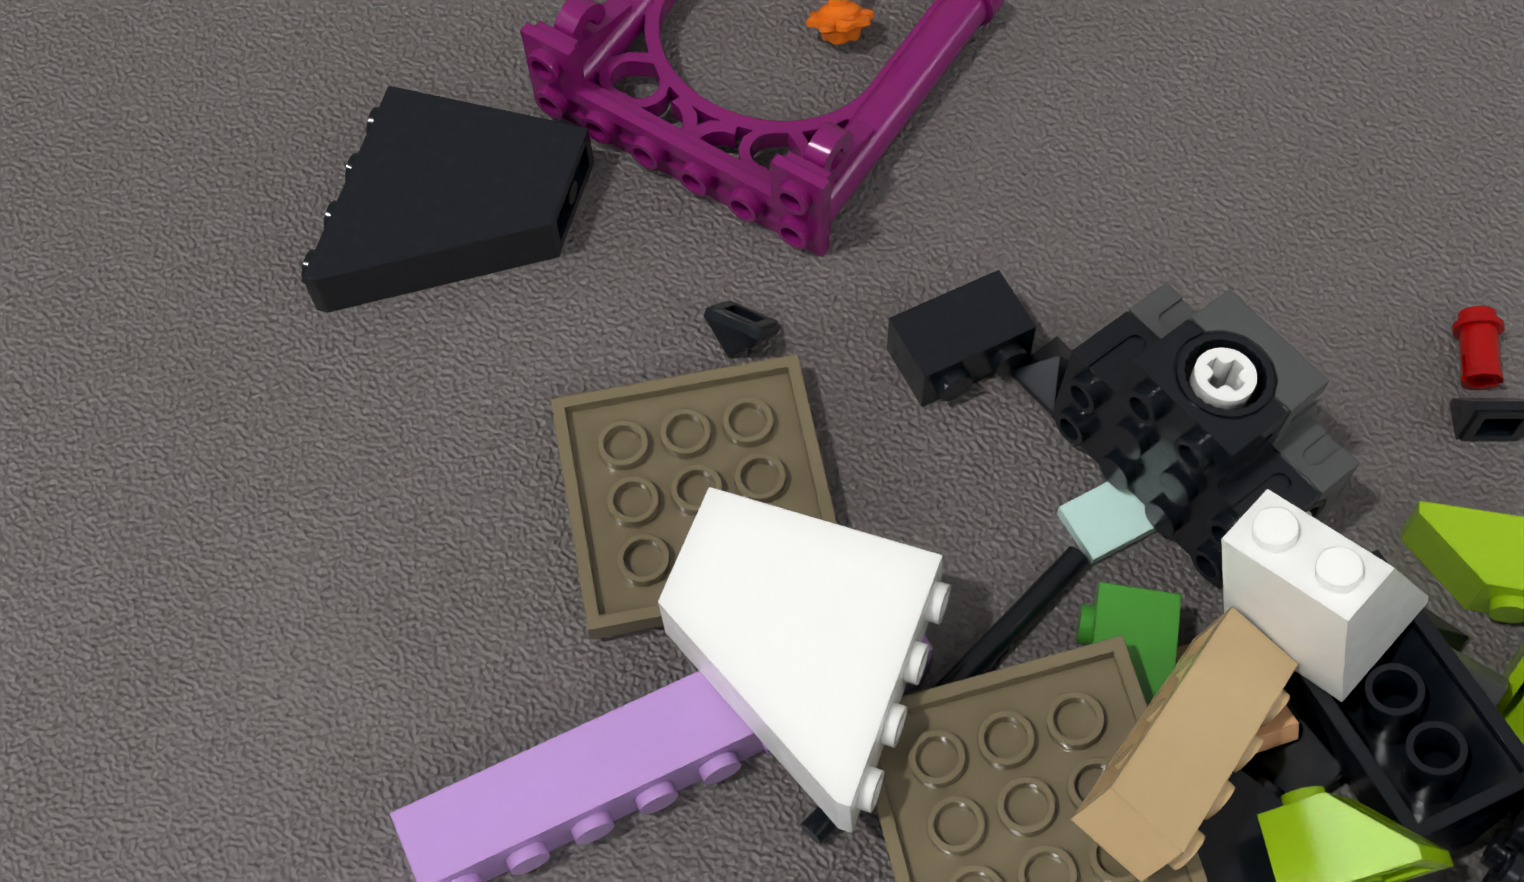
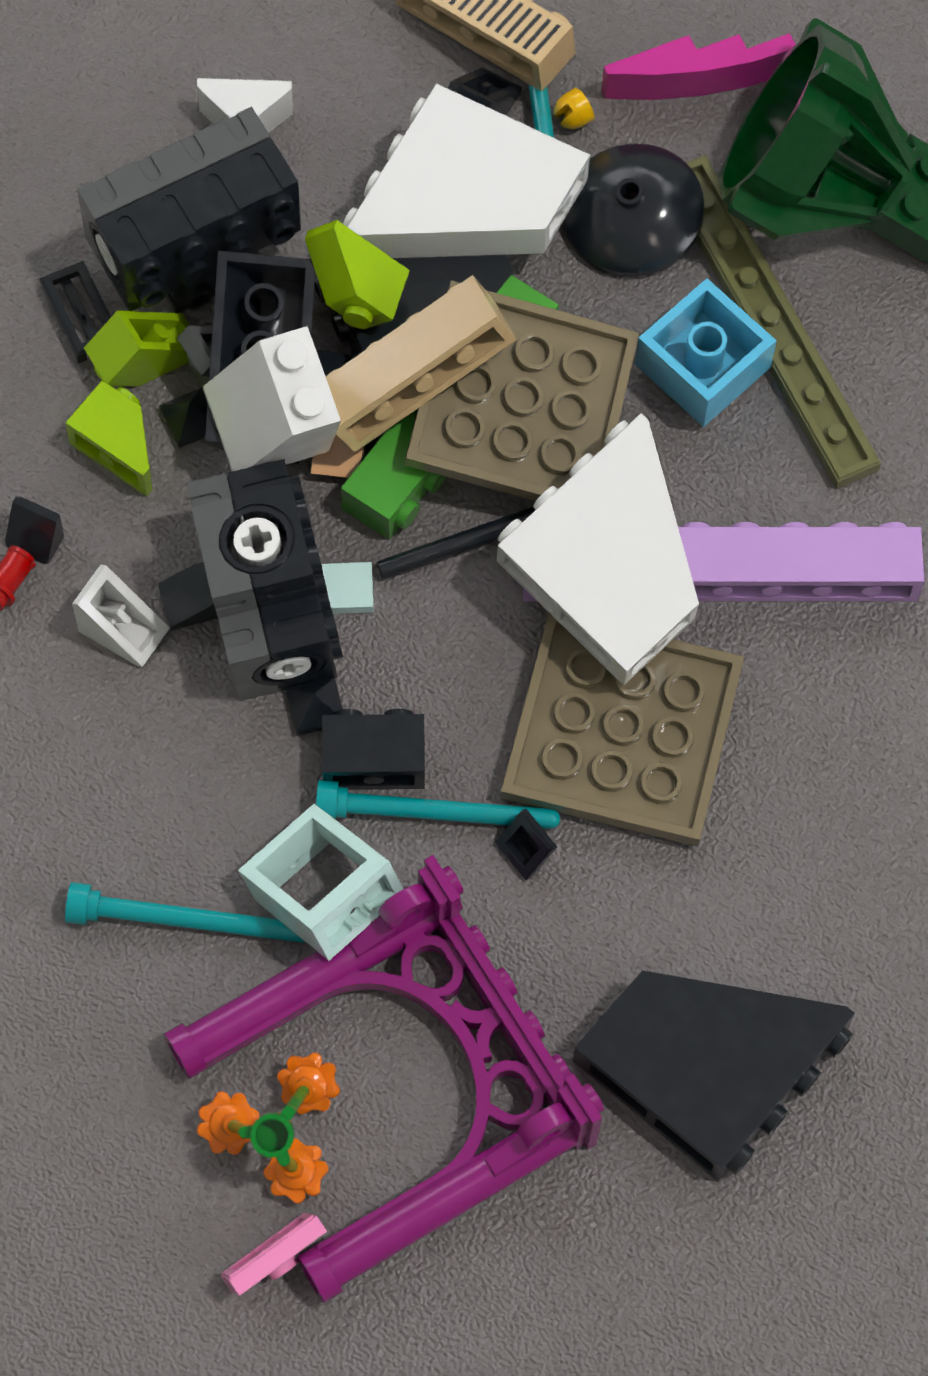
camera: 160 degrees left, 5 degrees up
(913, 205) = (329, 923): none -> light aqua window
(970, 267) = (338, 802): none -> teal piece
(1158, 79) = (89, 904): none -> teal piece
(1344, 346) = (117, 618): none -> white slope

